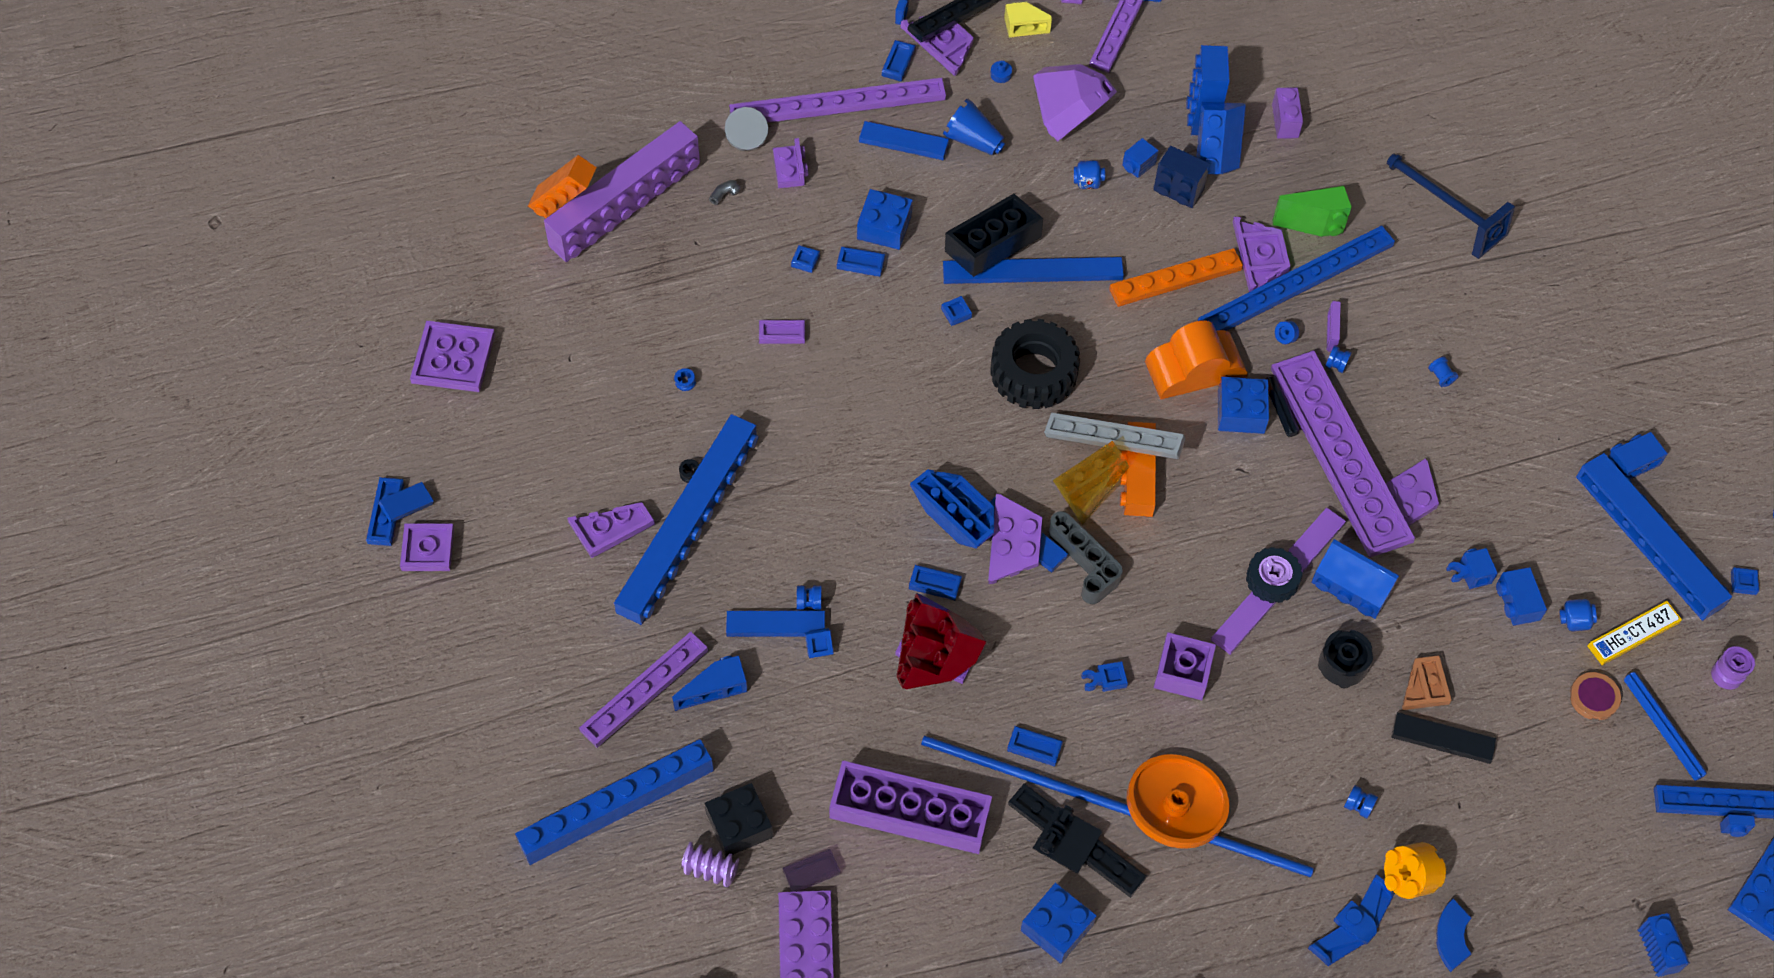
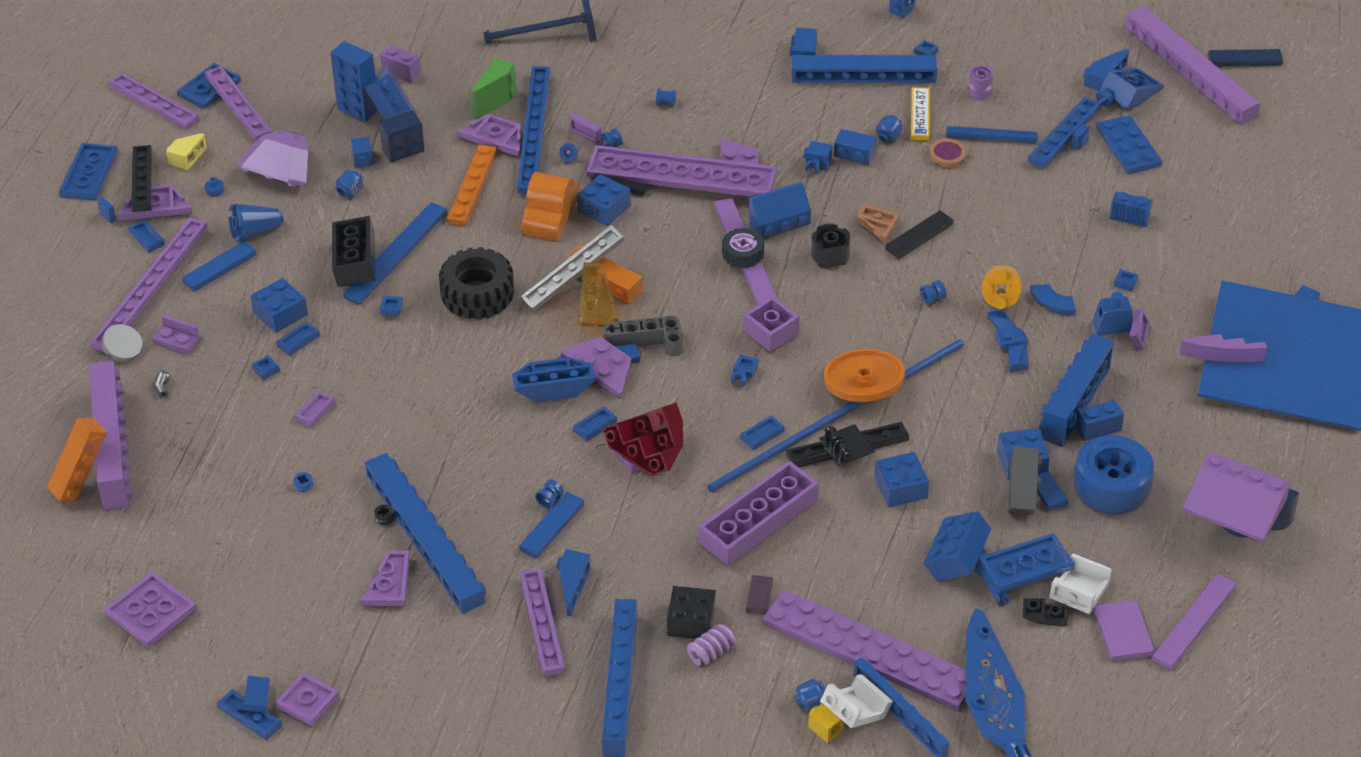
camera: 55 degrees left, 15 degrees down
(819, 643) = (590, 505): blue plate -> none

